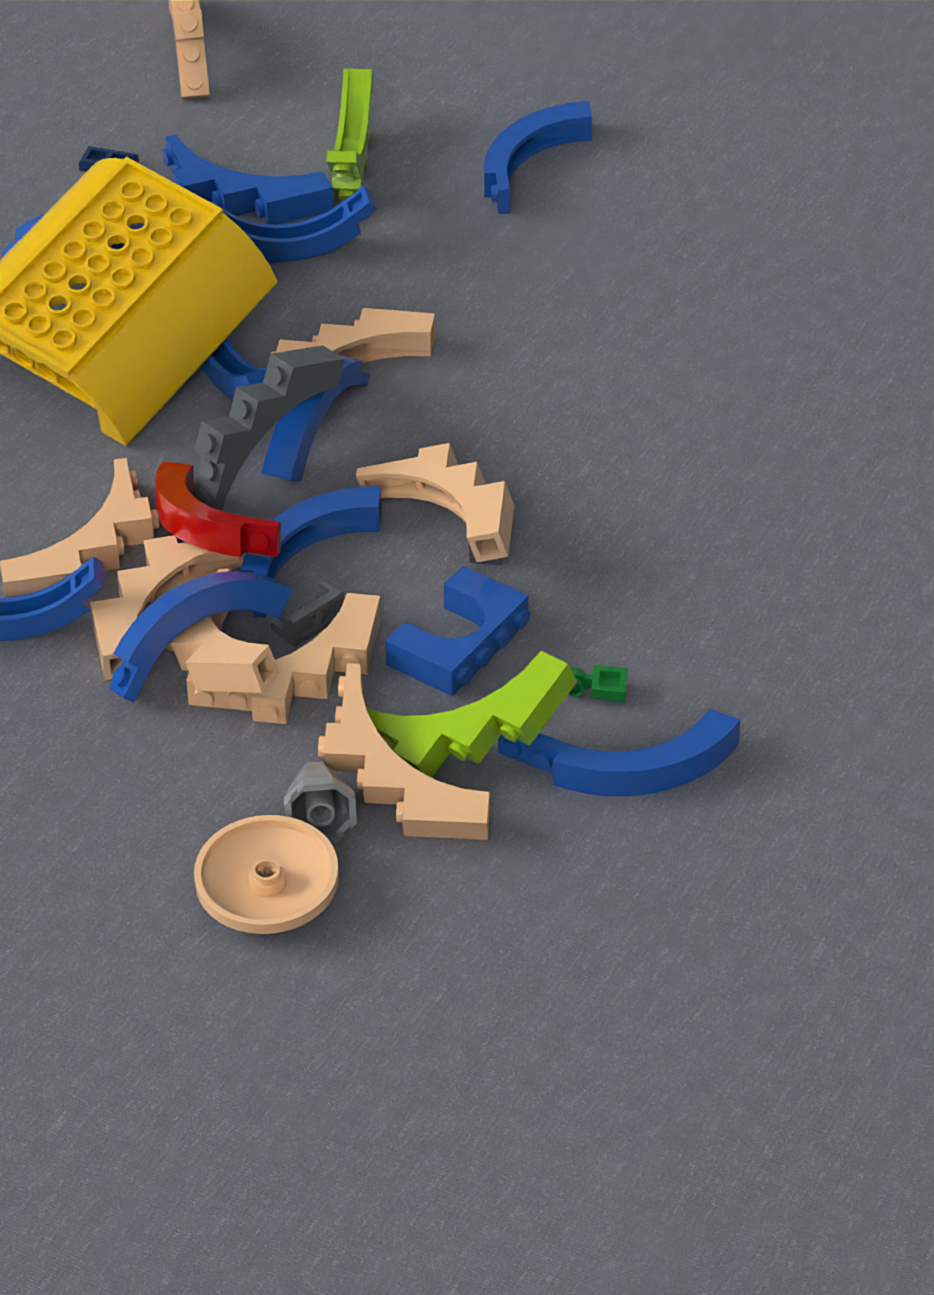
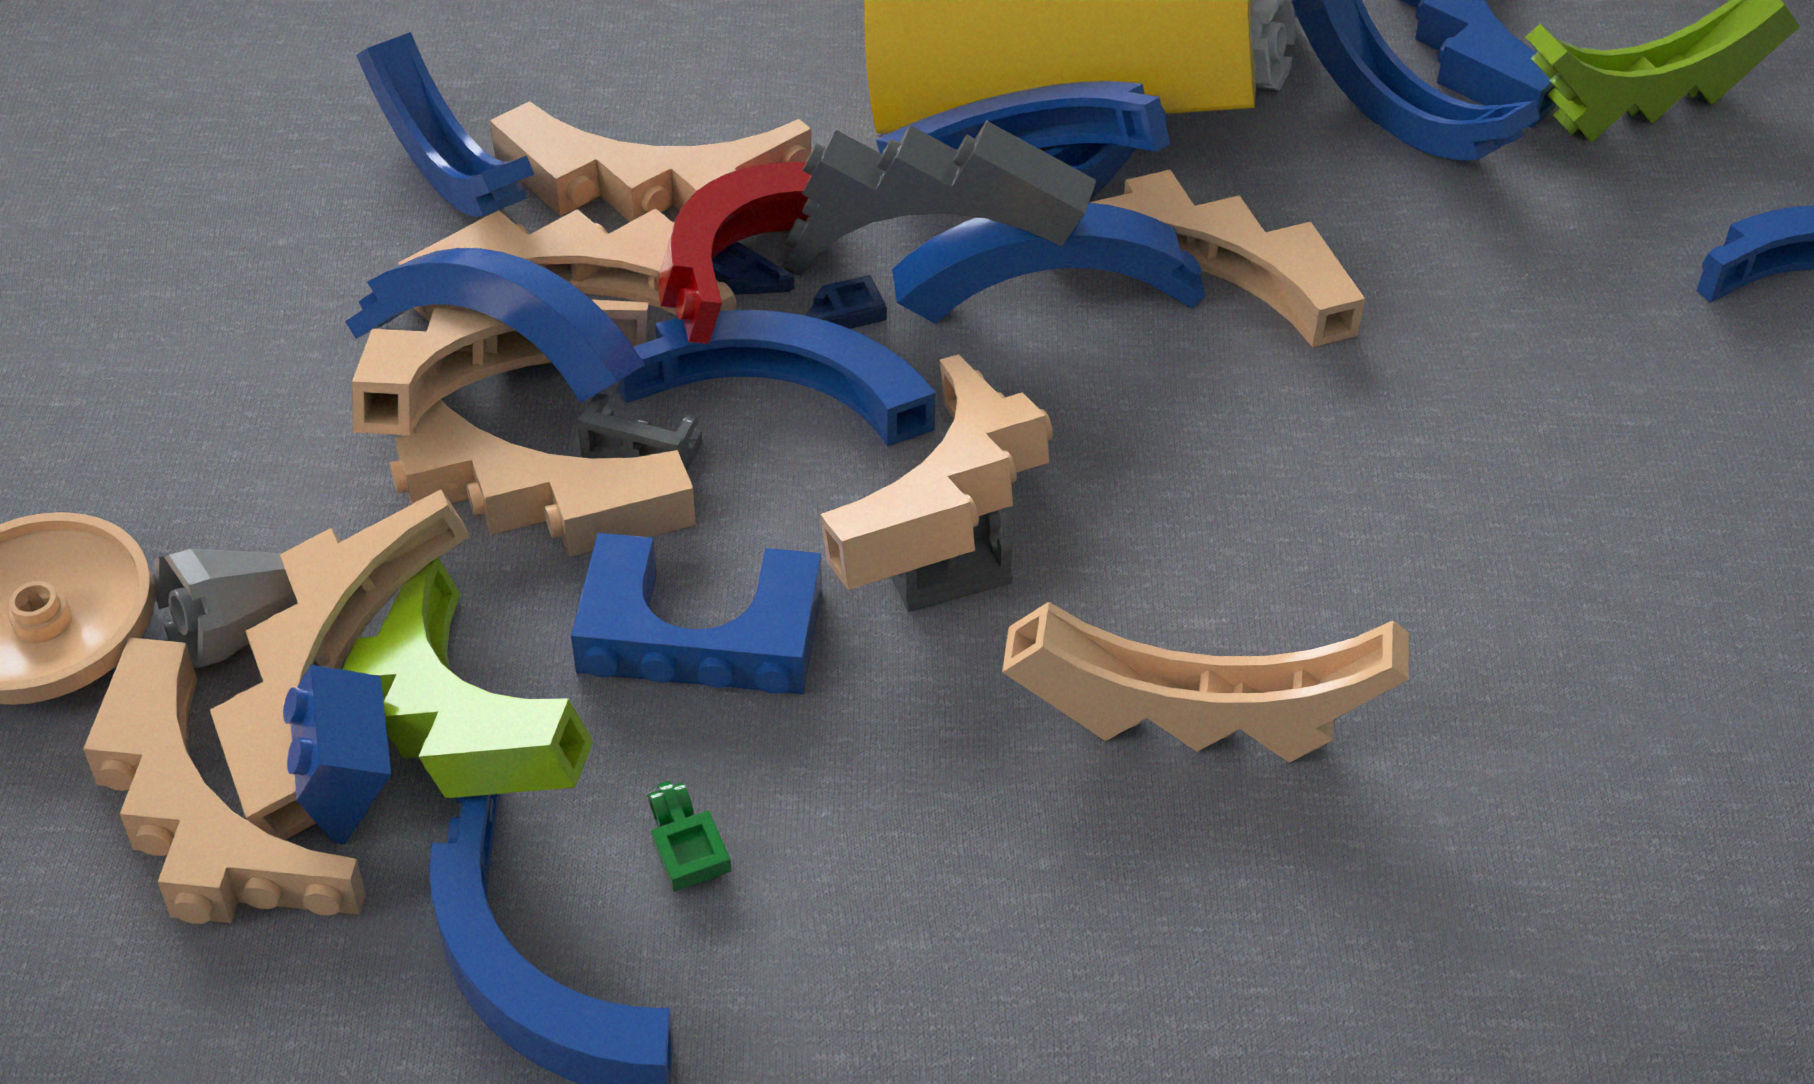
camera: 60 degrees right, 5 degrees up
(205, 364) = (1056, 116): none -> blue arch
(263, 503) = (849, 303): none -> dark blue tile
(445, 859) = (170, 810): none -> light nougat arch
(477, 766) = (337, 746): none -> blue slope
(673, 450) = (1200, 698): none -> light nougat arch

